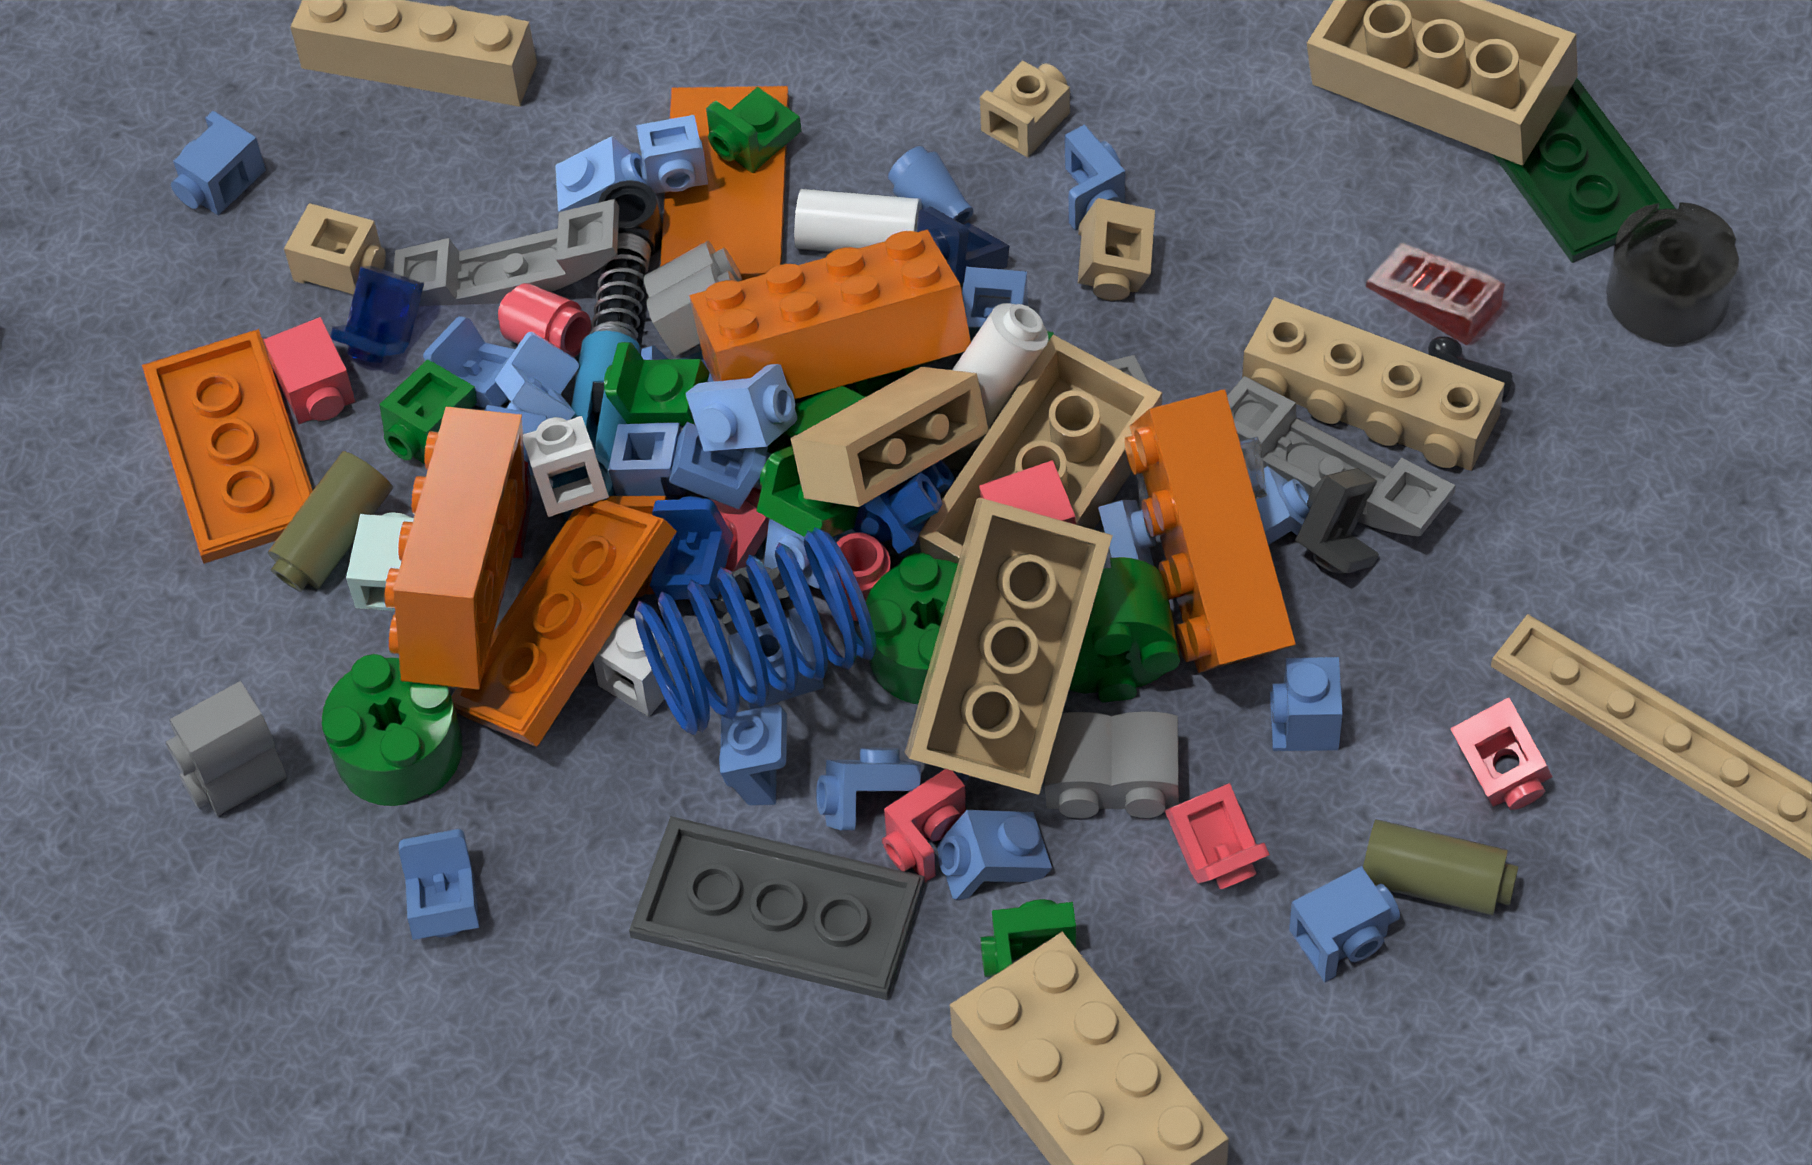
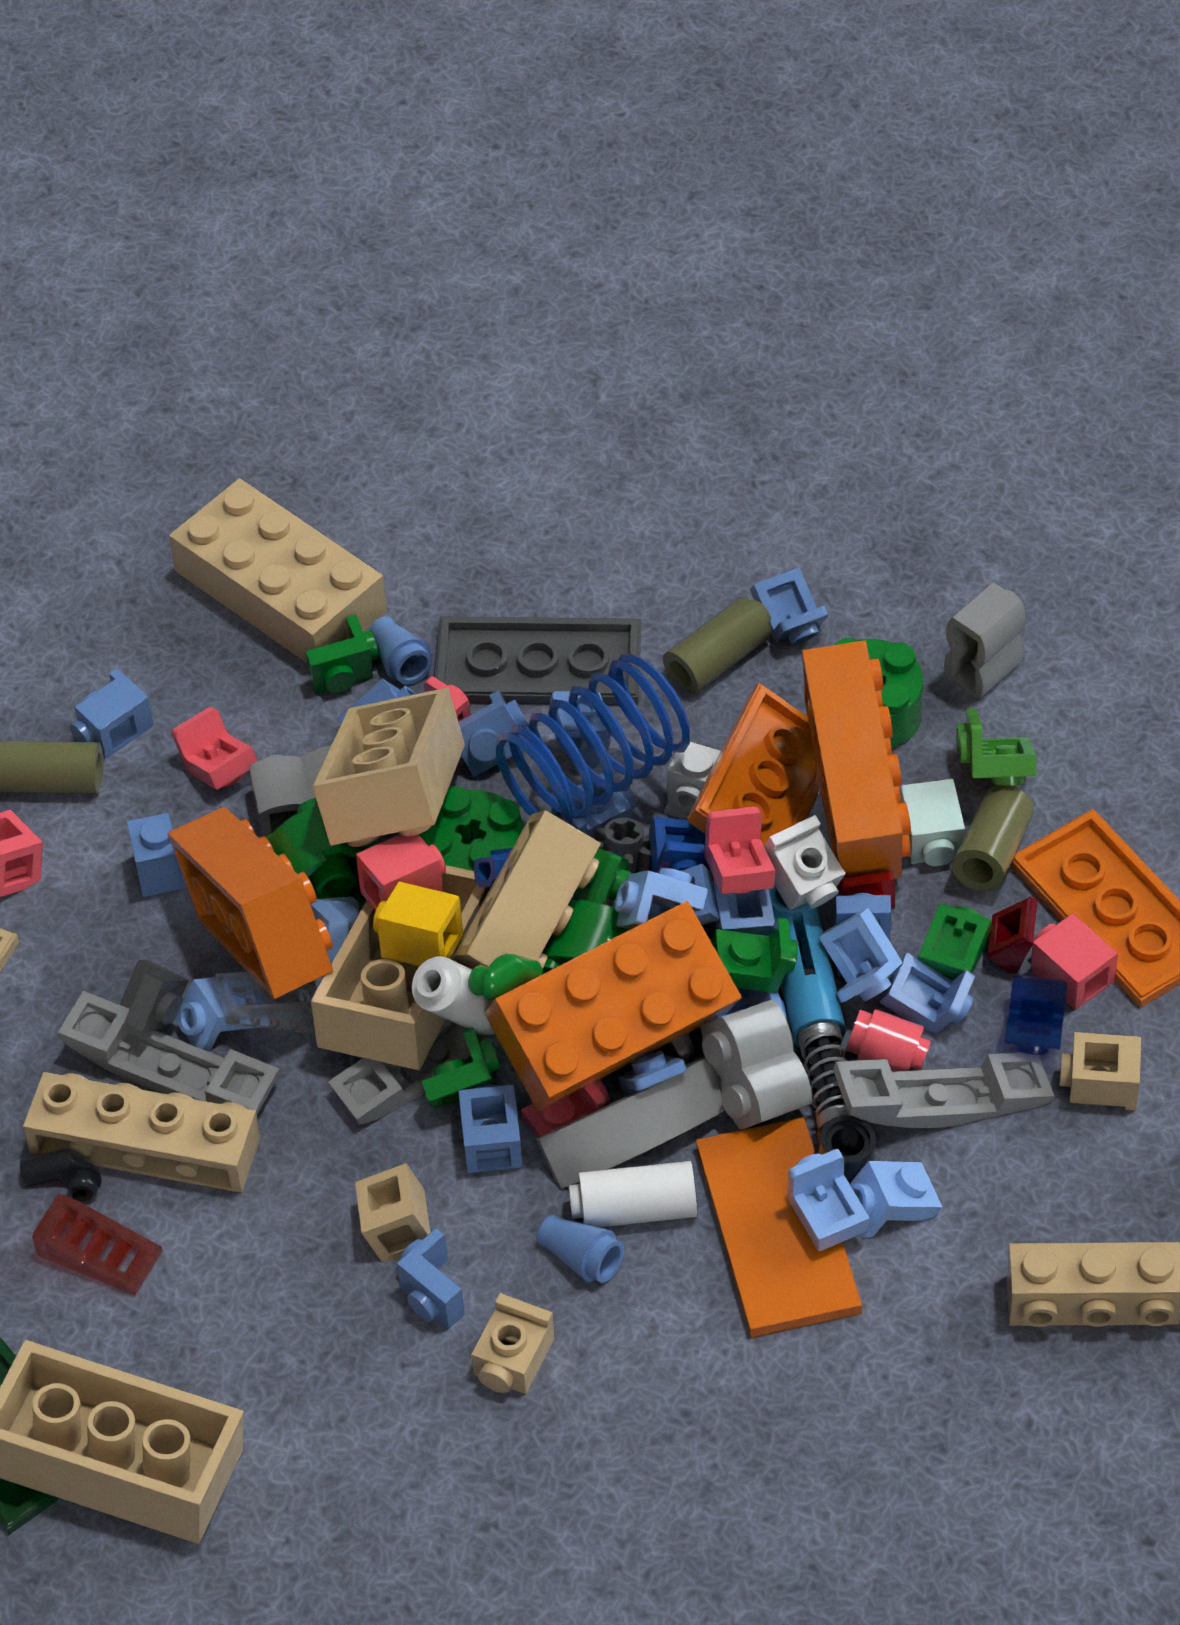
camera: 165 degrees right, 5 degrees down
(280, 607) = (996, 758): none -> bright green bracket
(354, 405) = (1012, 934): none -> dark red slope
(545, 858) = (718, 644): none -> olive brick
(634, 461) = (737, 852): none -> coral bracket
(751, 129) = (765, 1254): green bracket -> none
(931, 327) = (503, 975): none -> green arm
(951, 944) = (401, 652): none -> medium blue cone
(963, 243) = (536, 1178): dark blue bracket -> none
(1021, 428) = (418, 924): none -> yellow brick

